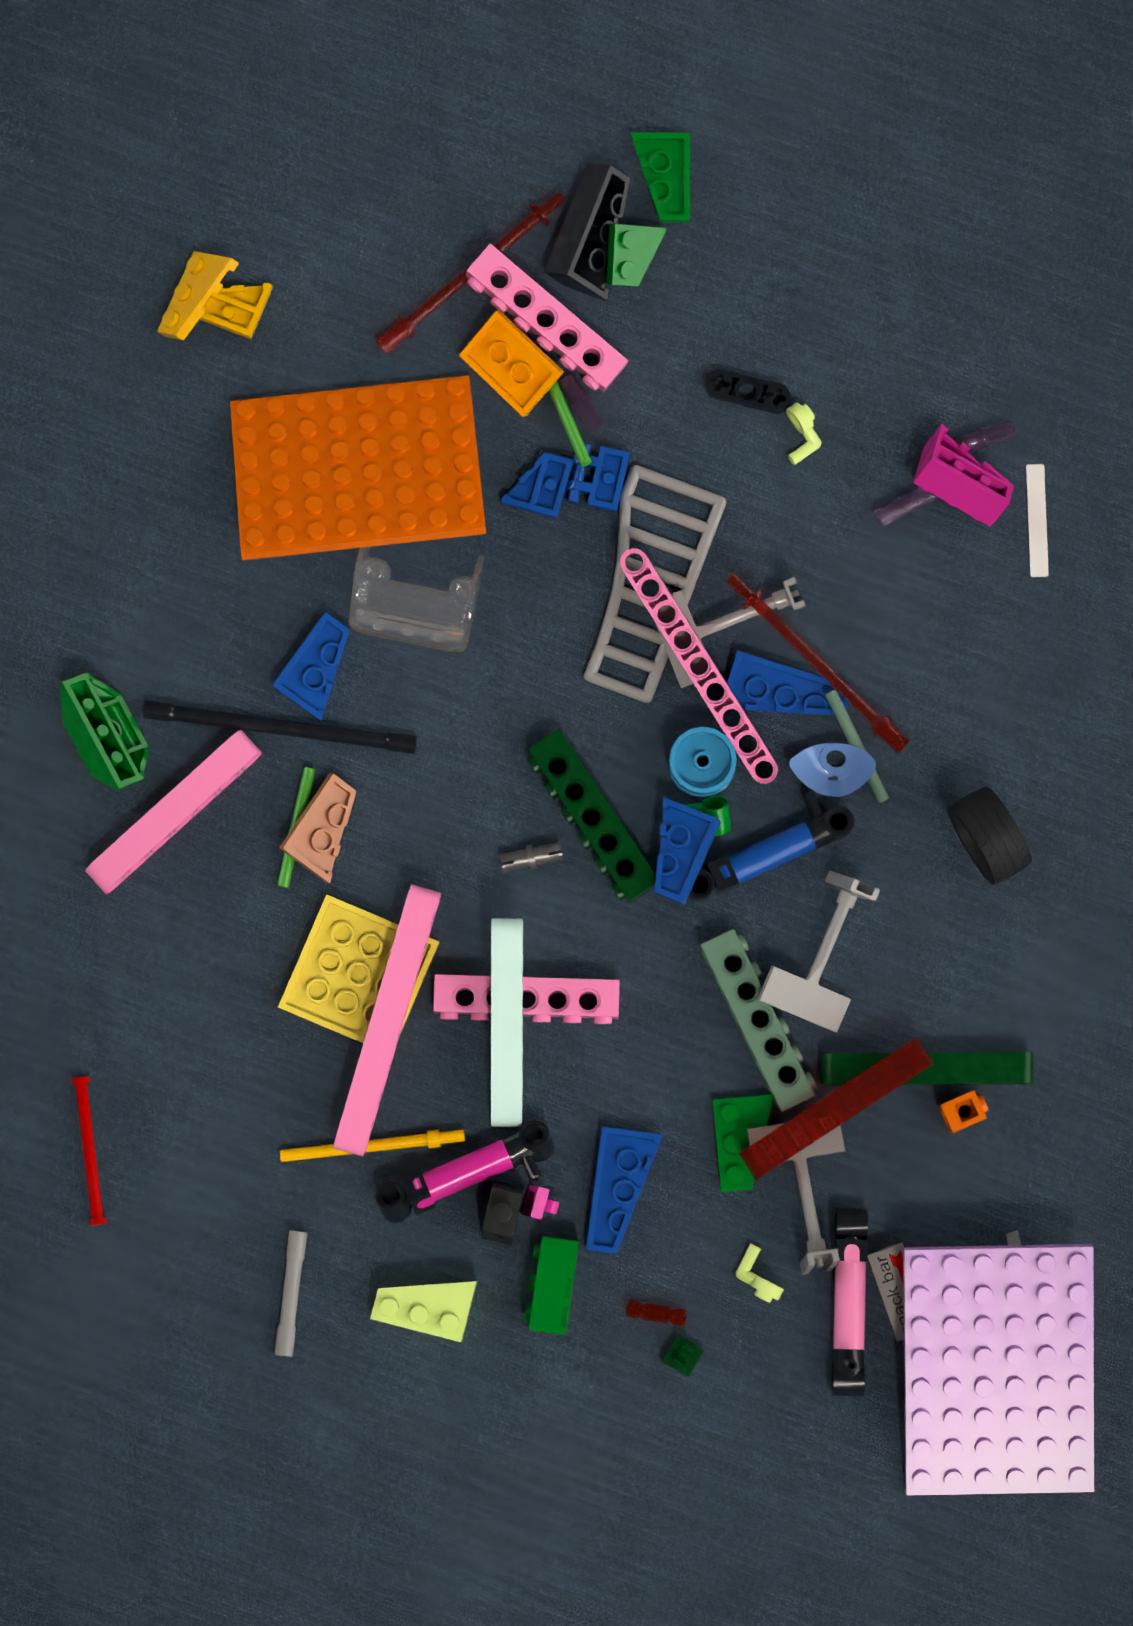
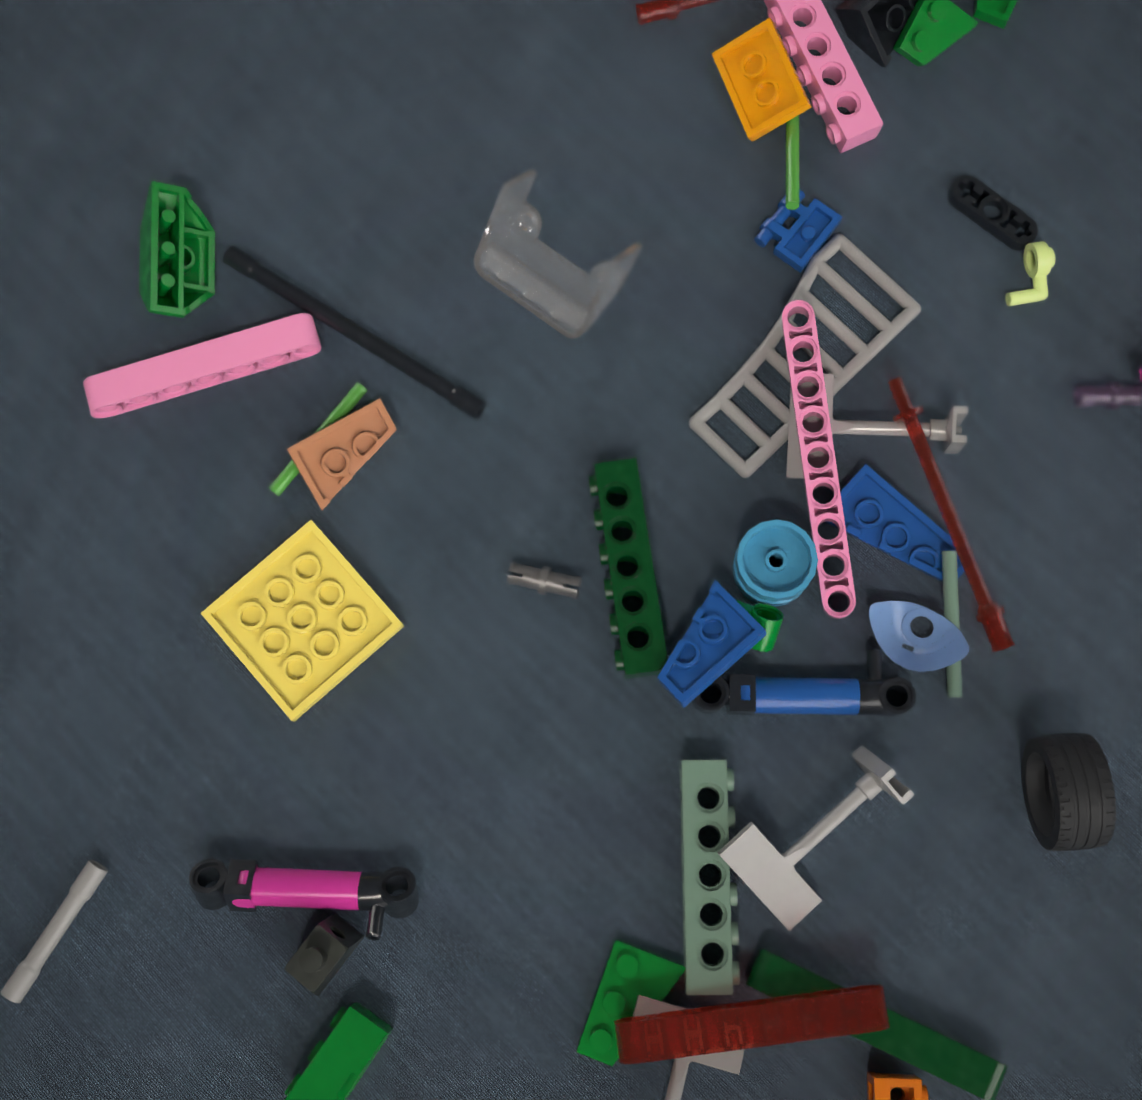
camera: 30 degrees right, 5 degrees down
(313, 667) = (417, 286): blue wing -> none
(356, 468) = (554, 109): orange plate -> none
(387, 1020) = (300, 683): bright pink beam -> none
(427, 1308) = (185, 1024): yellowish green wedge -> none
(432, 1139) = (290, 833): yellow bar -> none
(506, 1022) = (427, 744): light aqua beam -> none
(537, 1202) = (367, 963): dark pink tile -> none
(542, 487) = (735, 213): blue wing -> none
(581, 403) = (813, 149): clear purple axle -> none
(606, 992) = (388, 677): bright pink brick -> none
(619, 1179) = (471, 978): blue wing -> none

